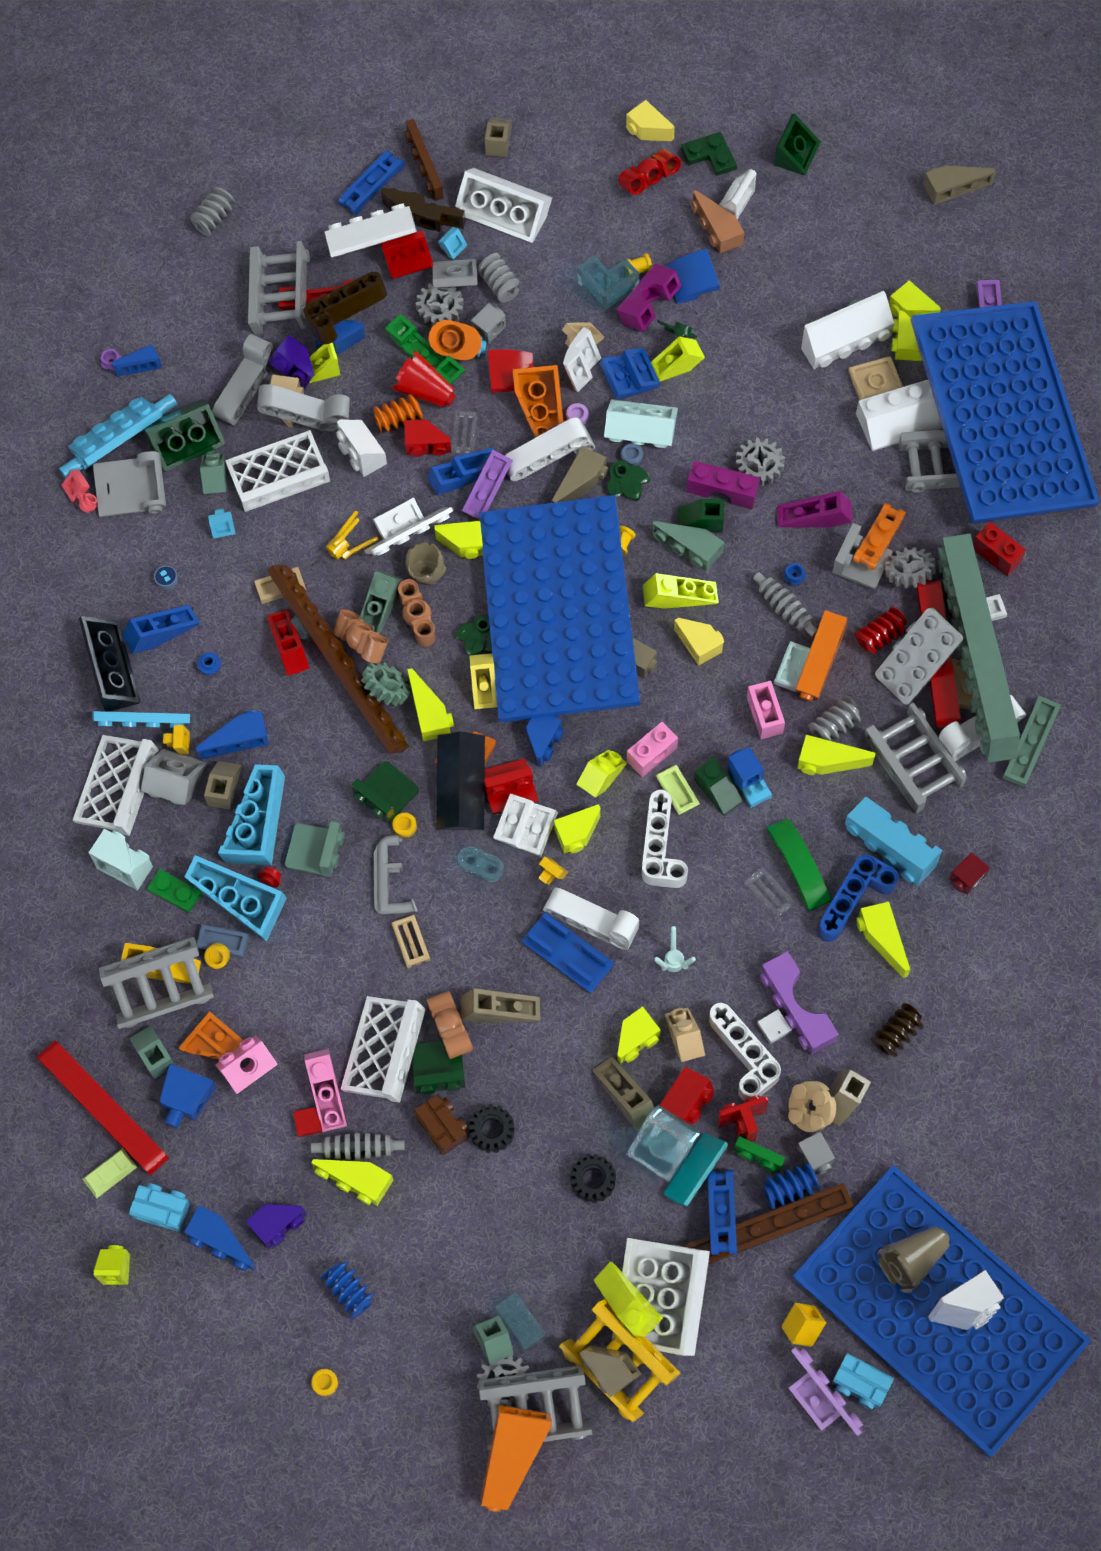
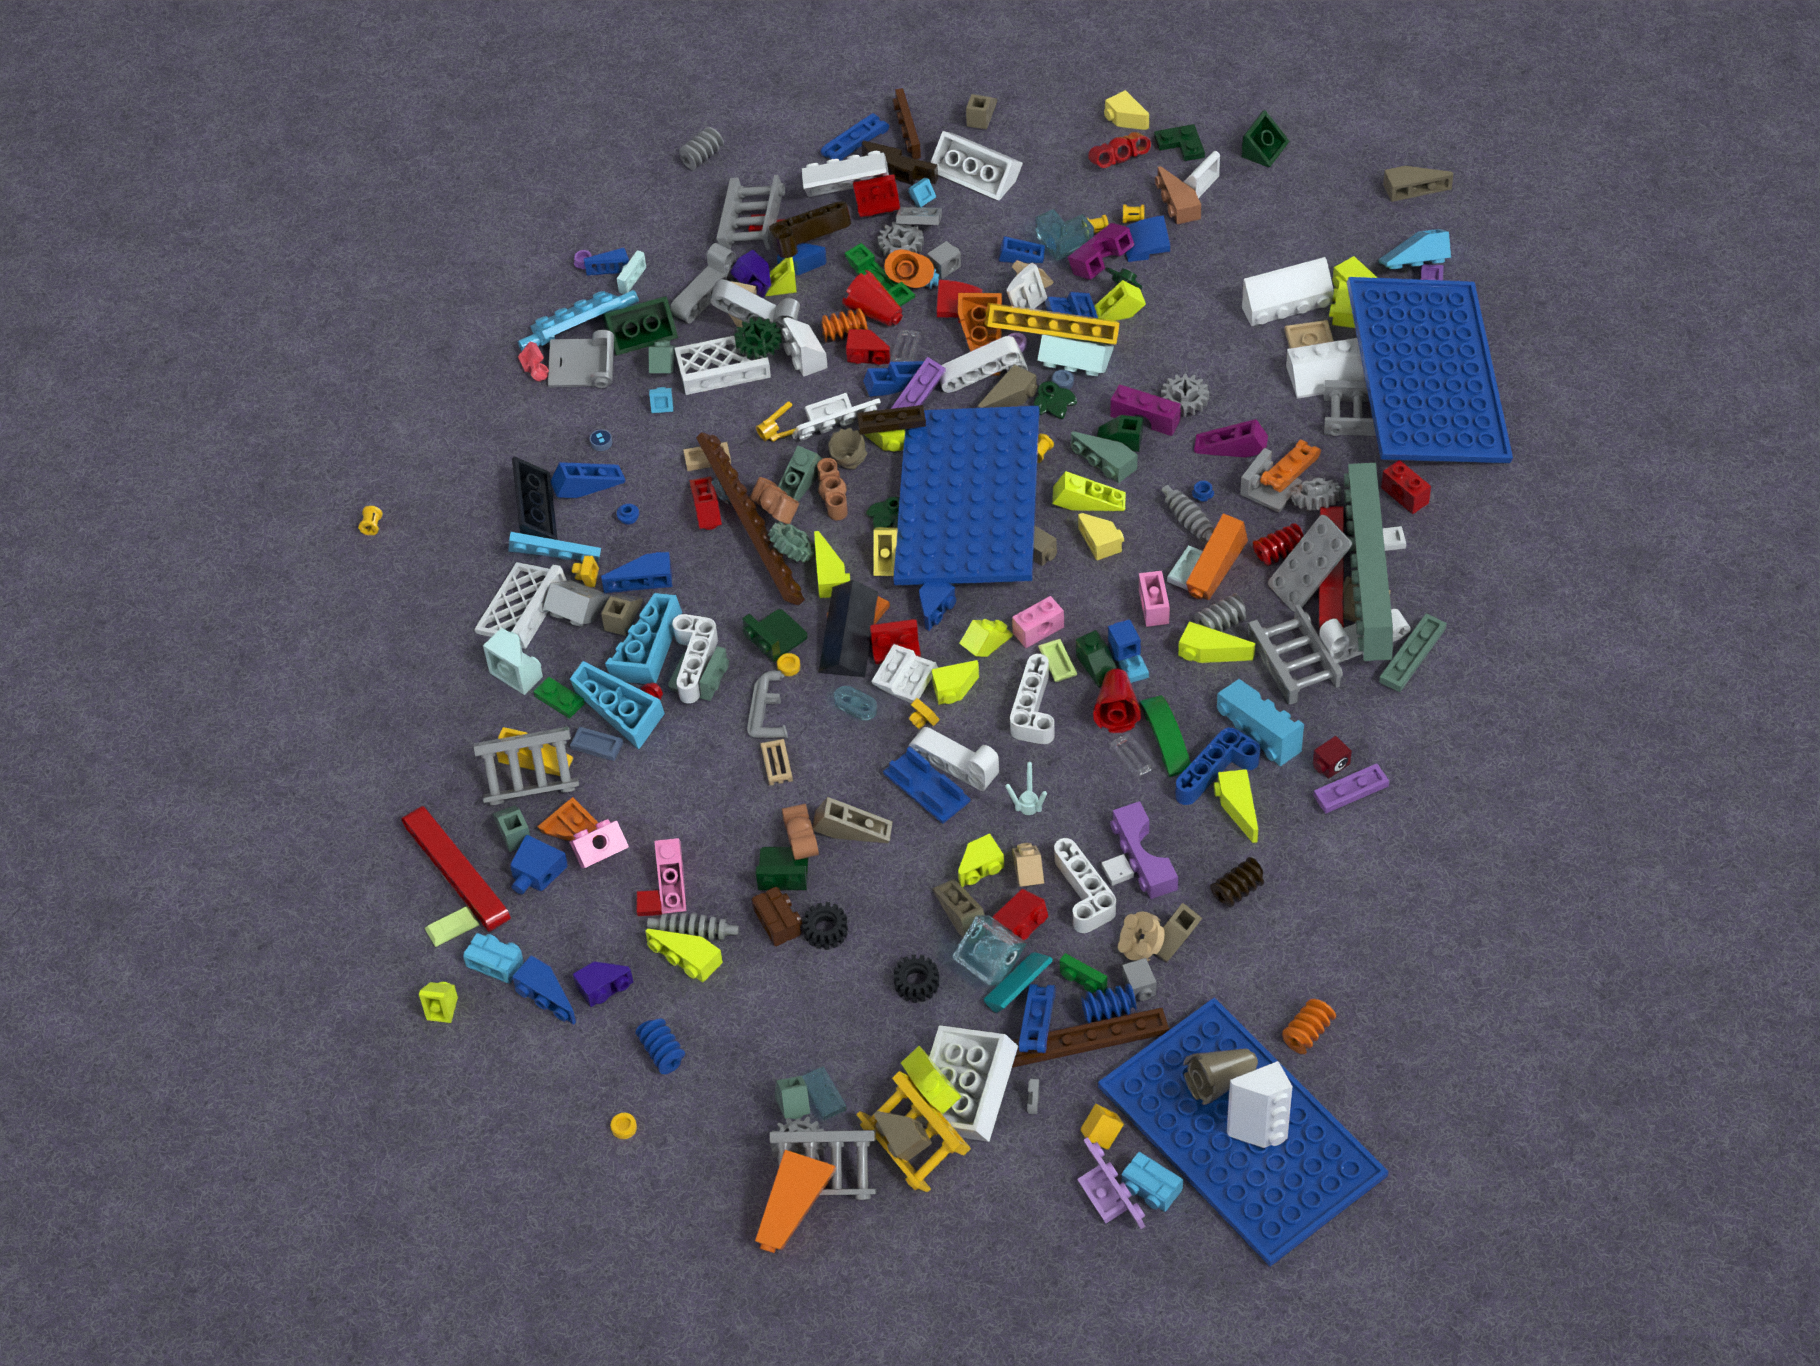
camera: 10 degrees right, 15 degrees down
(163, 371) = (631, 272): none -> light aqua plate
(217, 955) = (588, 753): yellow tile -> none
(304, 450) = (758, 338): none -> dark green gear
(307, 835) = (701, 638): none -> white beam
(402, 1048) = (748, 849): white fence -> none
(467, 529) = (891, 419): none -> dark brown plate
(498, 277) = (960, 223): light grey piece -> none
(558, 310) = (1014, 249): none -> blue slope
(613, 395) = (1052, 323): none -> yellow brick
(675, 247) = (1126, 210): none -> yellow bush
(730, 1299) = (1033, 1097): none -> light grey tile
(744, 1116) = (1072, 934): red bracket -> none
(746, 835) = (1116, 703): none -> red cone
(972, 265) = (1422, 246): none -> medium azure slope
(988, 1185) = (1308, 1025): none -> orange piece
(993, 906) = (1351, 788): none -> medium lavender plate

